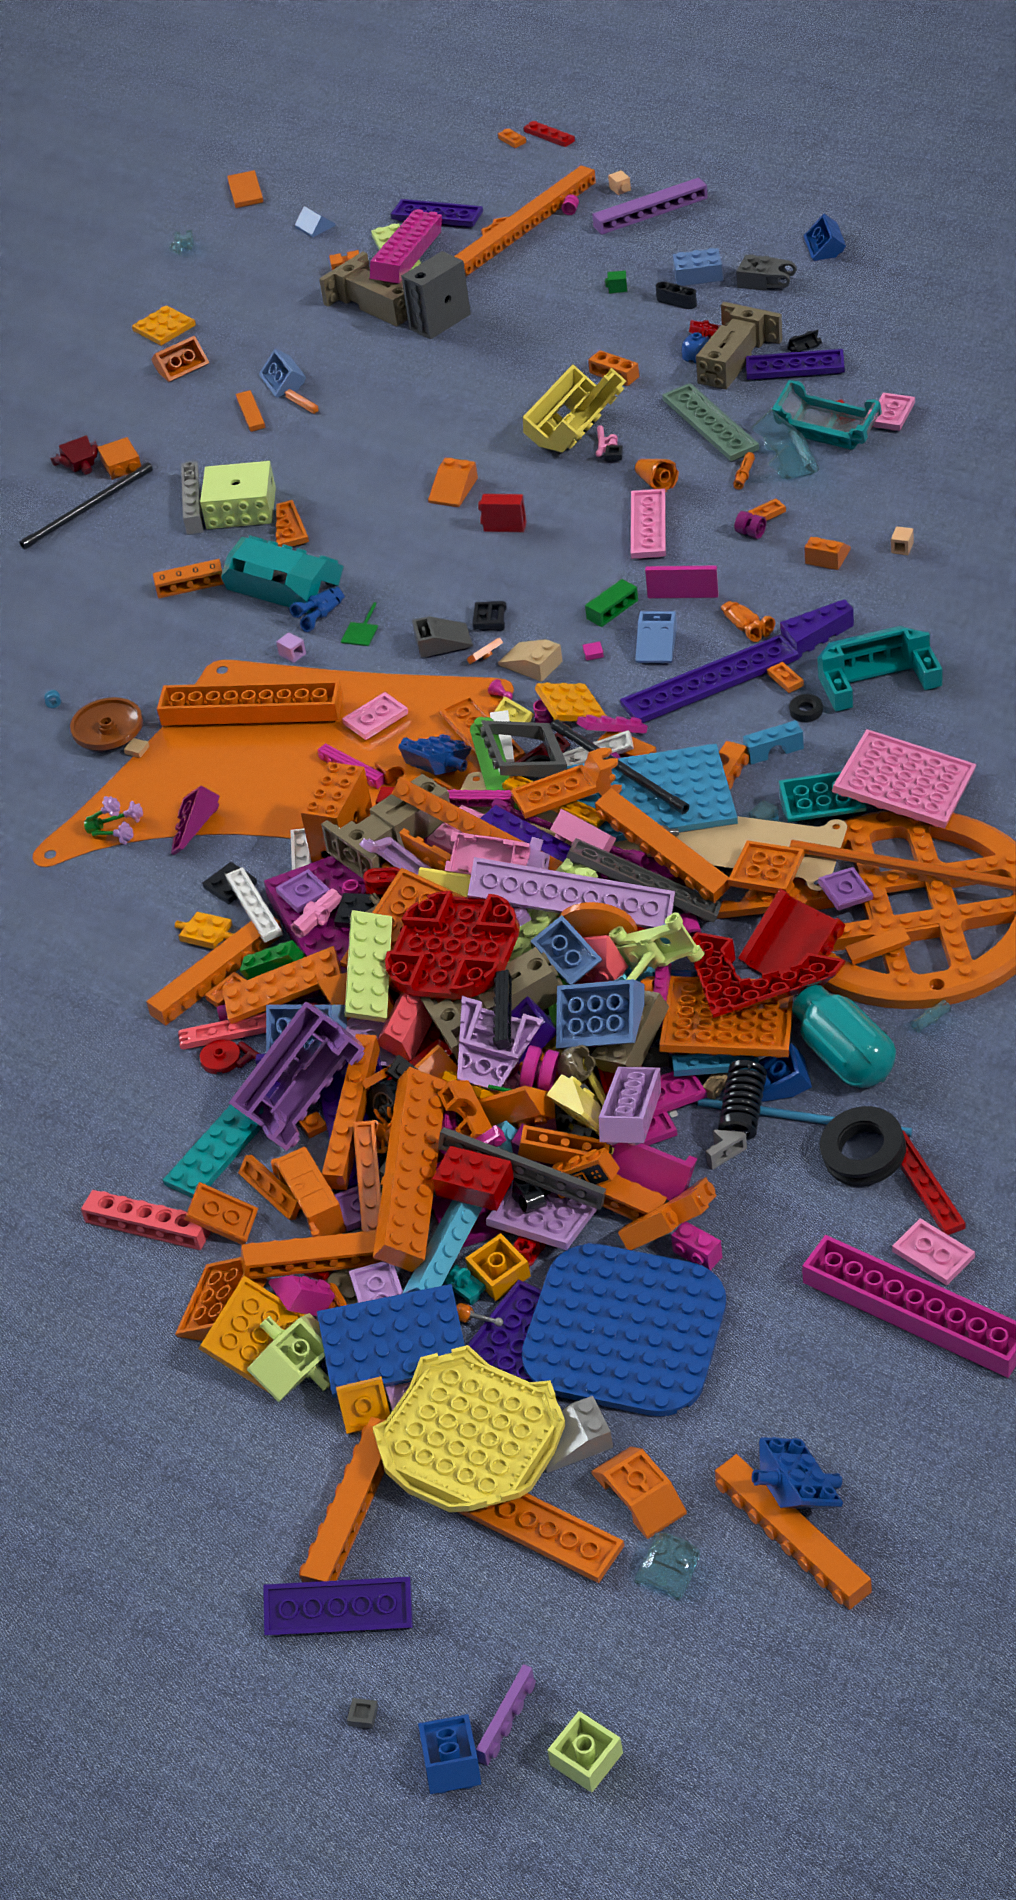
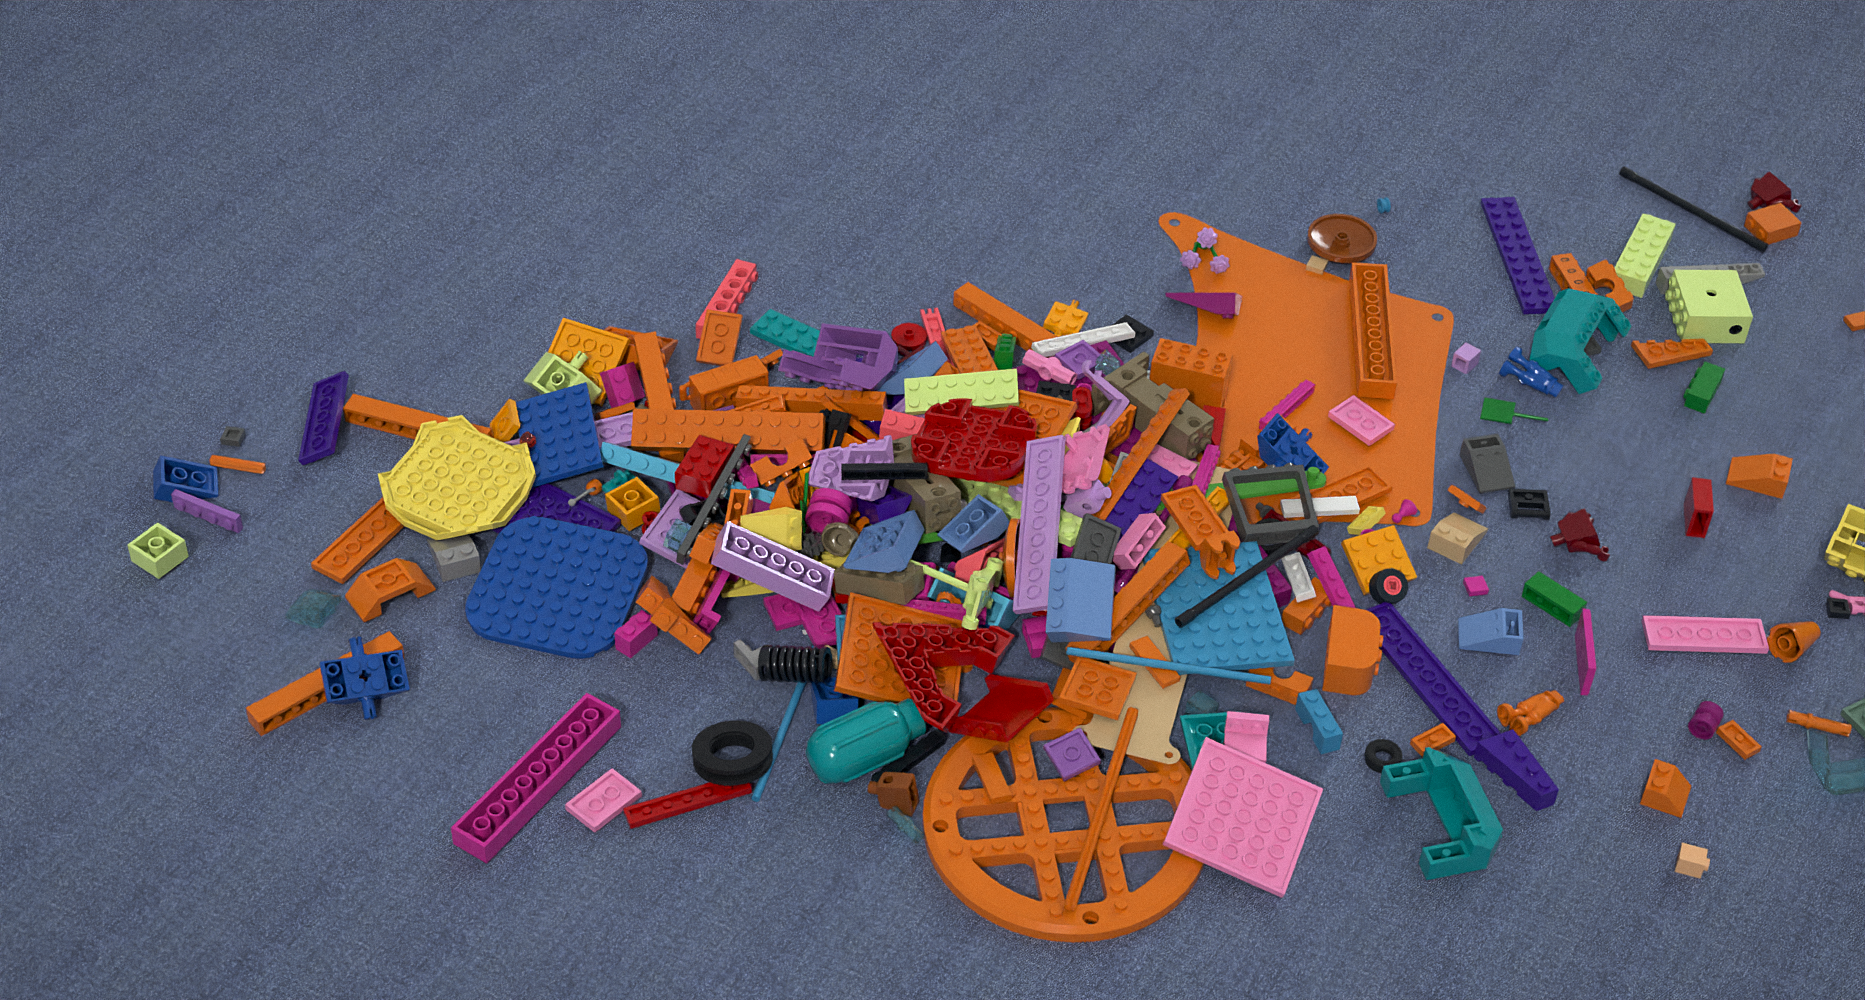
camera: 80 degrees right, 0 degrees up
(137, 614) = (1518, 254): none -> dark purple plate
(155, 534) = (1644, 253): none -> yellowish green brick
(192, 550) = (1604, 275): none -> orange arch
(325, 862) = (1107, 363): none -> clear light blue animal
(341, 507) = (1703, 387): none -> green brick
(410, 1361) = (529, 438): none -> clear red hinge
(413, 1700) = (237, 464): none -> orange axle
(531, 583) = (1579, 535): none -> dark red torso
(563, 1207) = (676, 535): none -> clear light blue brick
(606, 696) = (1381, 584): none -> black wheel
(671, 868) = (1080, 600): none -> medium blue slope
(690, 717) = (1352, 651): none -> orange brick
(725, 833) = (1145, 648): none -> orange tile
(735, 821) = (1168, 665): none -> dark azure piece
(819, 772) = (1247, 733): none -> bright pink bracket
(898, 1023) = (896, 790): none -> dark orange torso

